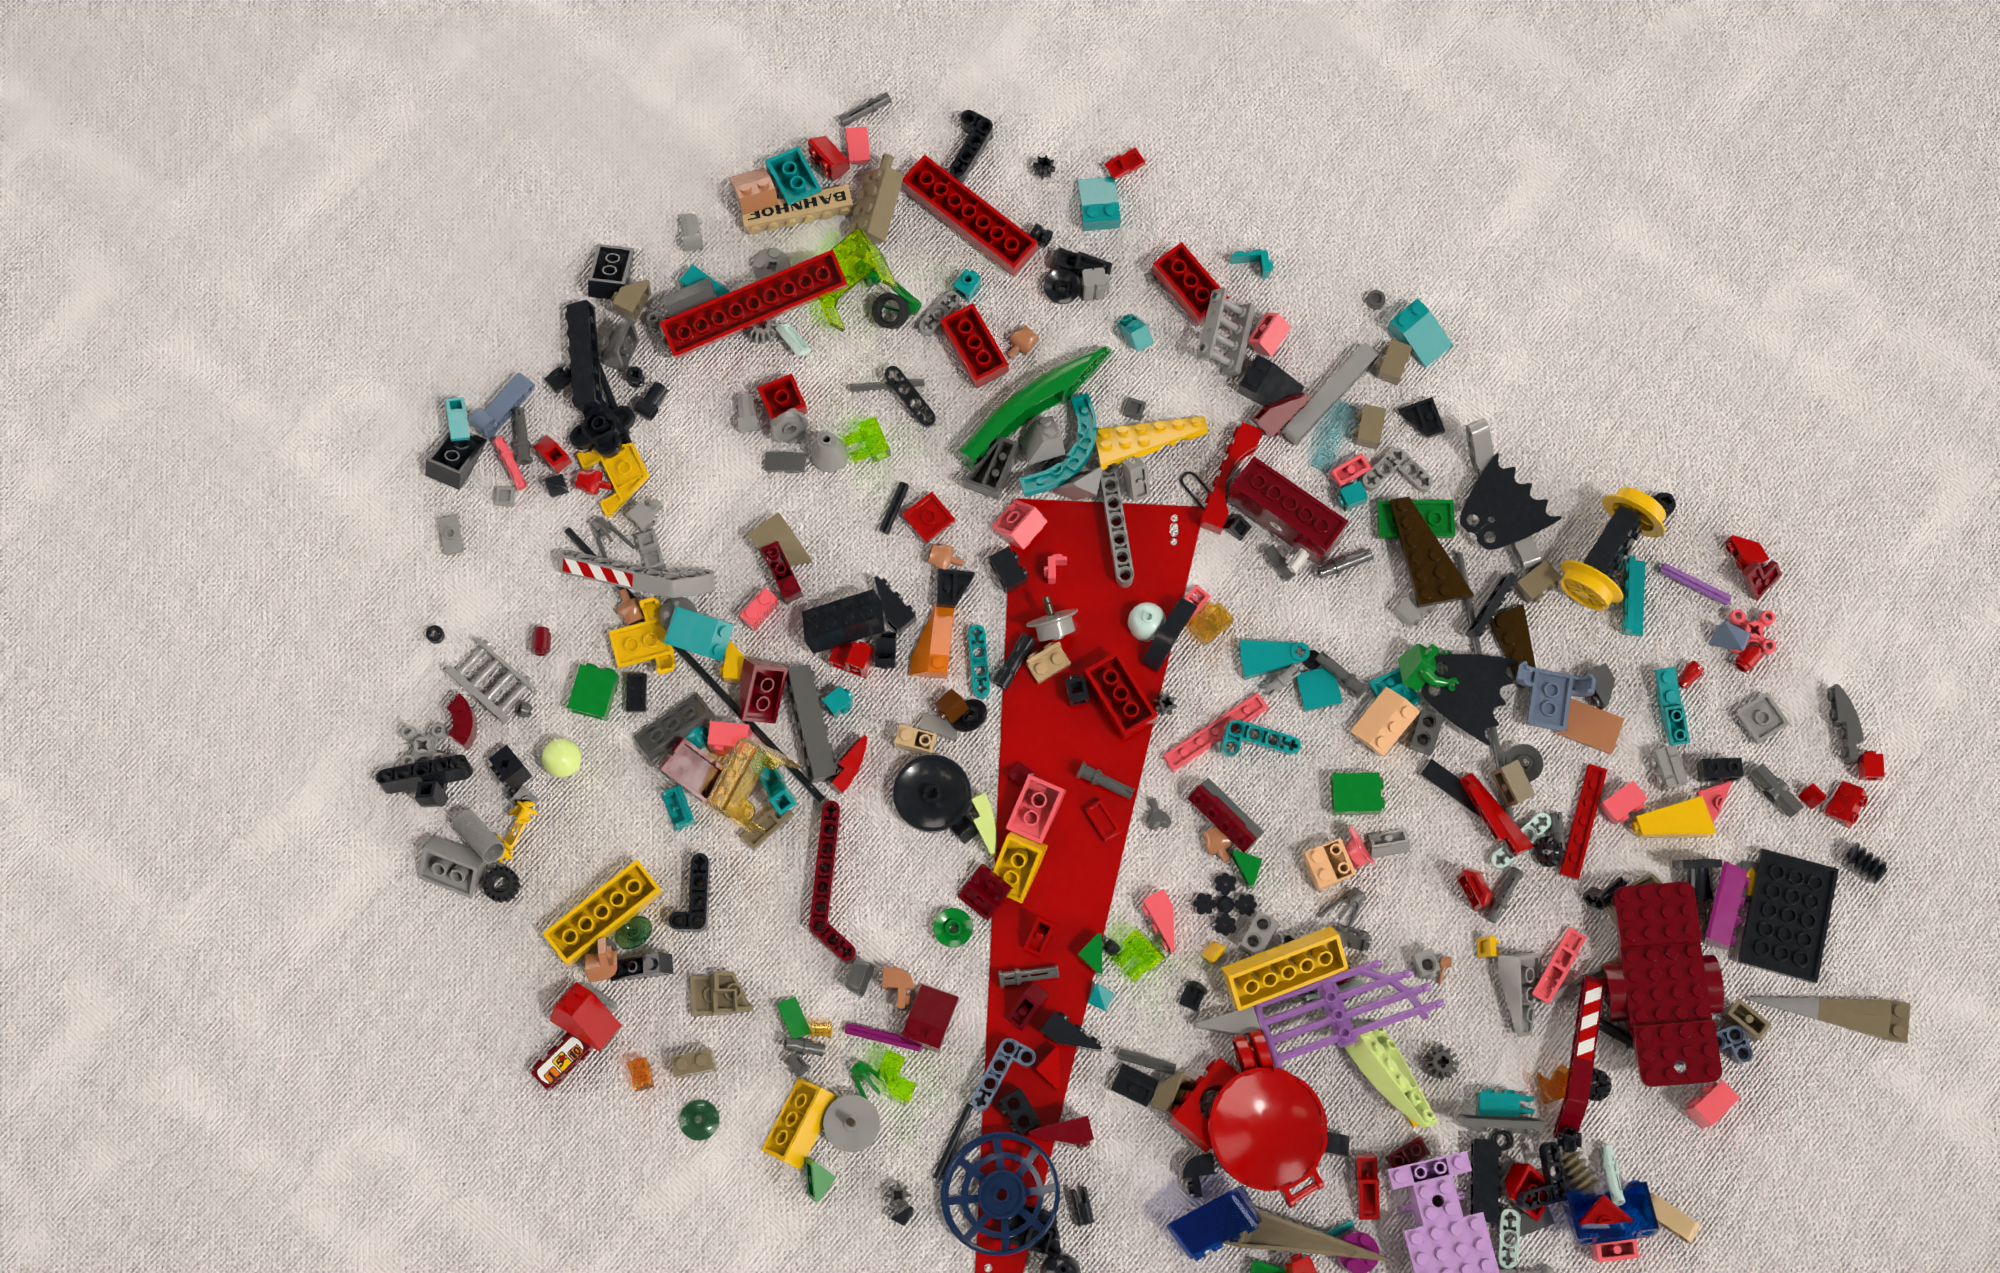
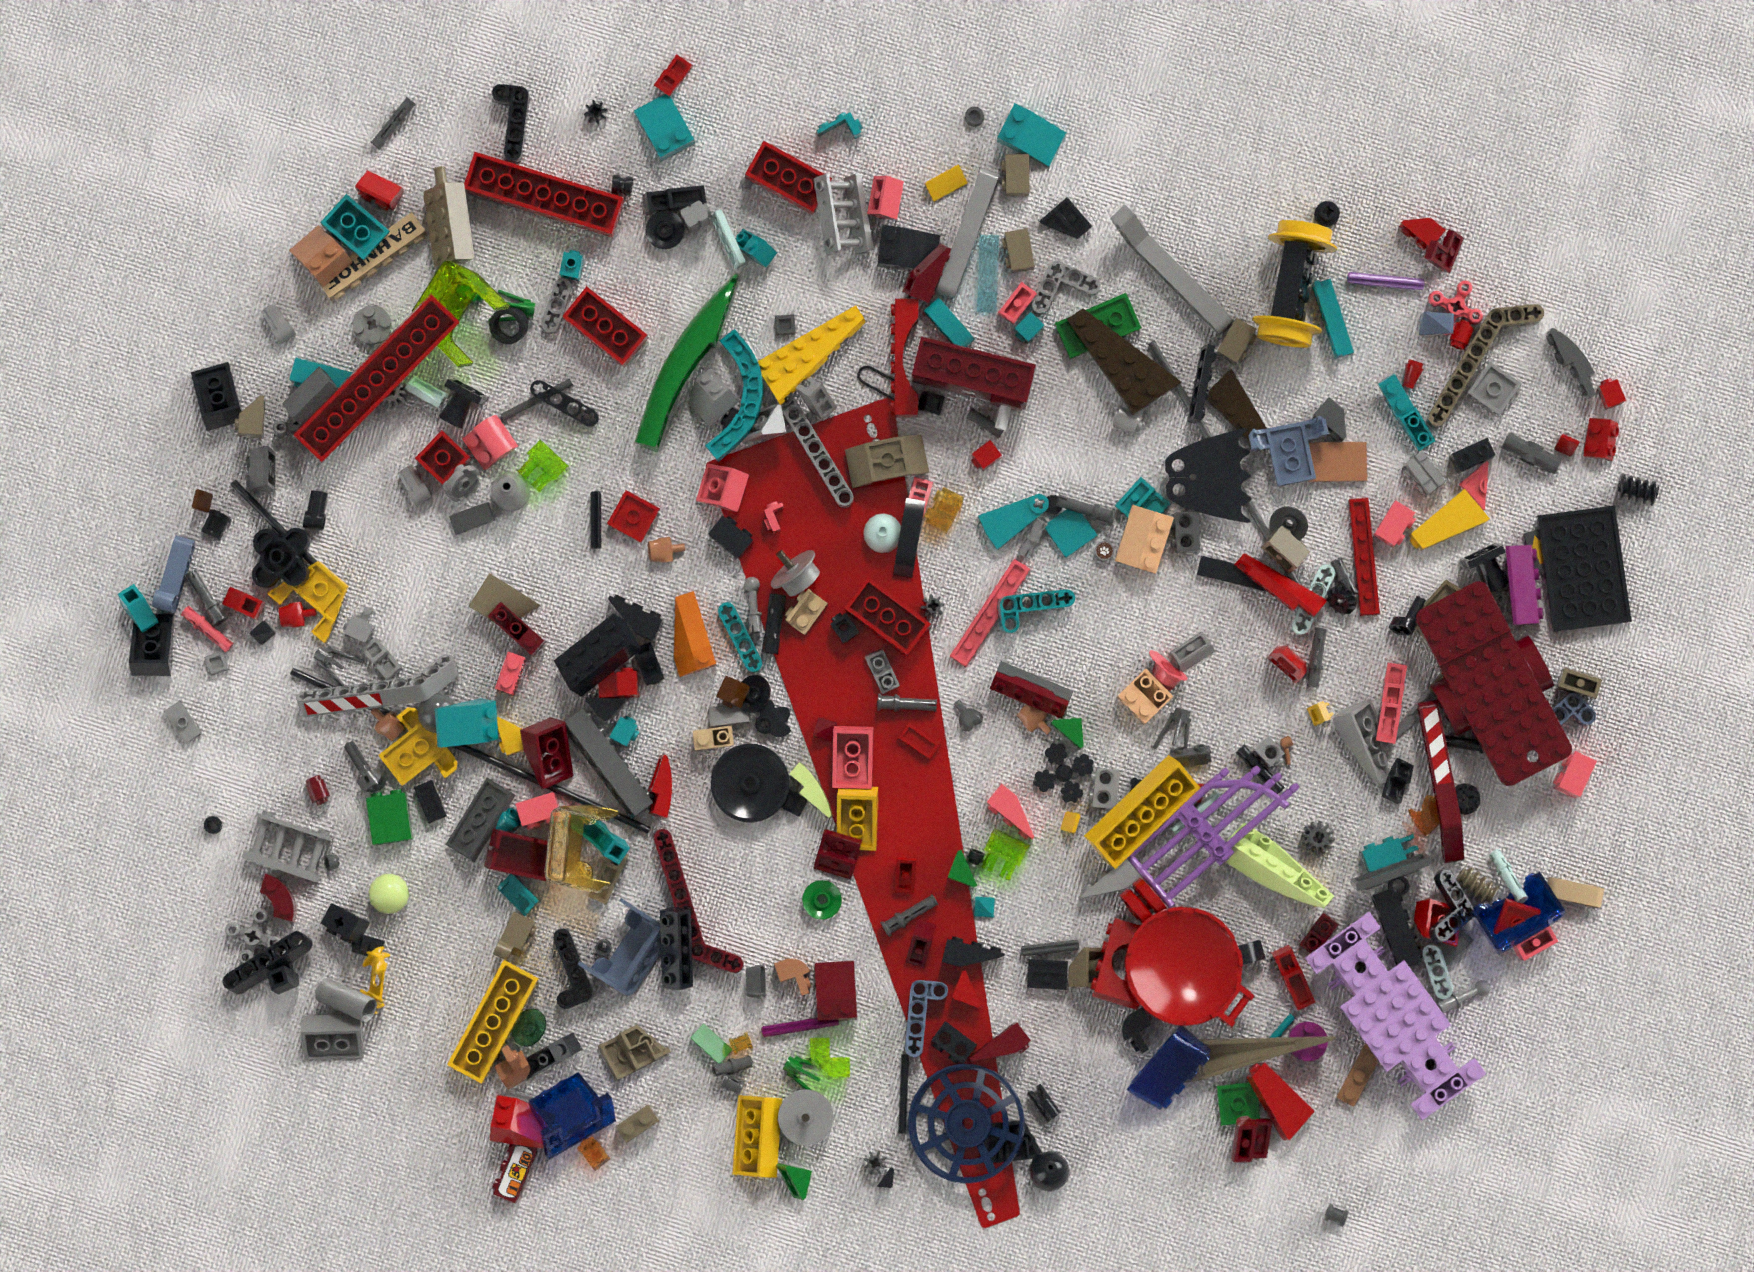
camera: 20 degrees left, 10 degrees up
(496, 873) = (373, 1034): black tyre -> none
(556, 353) = (202, 501): none -> reddish brown slope
(584, 356) = (231, 493): black brick -> none
(591, 645) = (369, 777): none -> dark grey piece
(634, 1028) = (570, 1114): none -> clear blue windscreen
(637, 372) = (287, 487): black bush -> none
(658, 844) = (515, 937): none -> dark tan hinge
(709, 1123) = (675, 1171): clear green dish -> none
(730, 885) = (598, 947): none -> dark grey hinge
(761, 905) = (633, 955): none -> sand blue windscreen
(799, 915) = (676, 948): none -> black brick
(818, 359) = (460, 402): none -> black plant
(830, 403) = (490, 442): none -> coral brick
(831, 673) = (606, 707): none -> black slope
(857, 145) = (402, 164): coral slope -> none
(952, 586) = (684, 575): black wing -> none
(980, 746) = (776, 718): none -> black plate
(994, 469) = (675, 447): dark grey wedge -> none
(1009, 620) = (752, 585): none -> light grey pin
(1023, 341) = (650, 301): nougat piece -> none
(1095, 743) = (882, 671): none -> light grey slope
(1114, 315) = (728, 239): none -> light aqua tile
(1177, 557) = (886, 460): none -> dark tan slope
(1193, 995) = (1067, 870): black tile -> none
(1268, 591) = (985, 456): none -> red brick
(1280, 460) = (948, 324): none -> teal beam
(1327, 344) = (946, 183): none -> yellow slope
(1338, 566) = (1052, 393): dark grey pin -> none
(1343, 719) = (1104, 551): none -> tile
(1356, 793) = (1144, 618): green brick -> none
(1405, 963) = (1252, 761): none -> black pin
(1419, 665) = (1156, 473): green torso -> none
(1509, 503) = (1177, 275): black piece -> none
(1539, 1038) = (1397, 779): none -> black slope
(1569, 1139) = (1458, 861): black gear -> none
(1765, 674) = (1474, 361): none -> dark tan beam
(1872, 1017) = (1694, 632): dark tan plate -> none

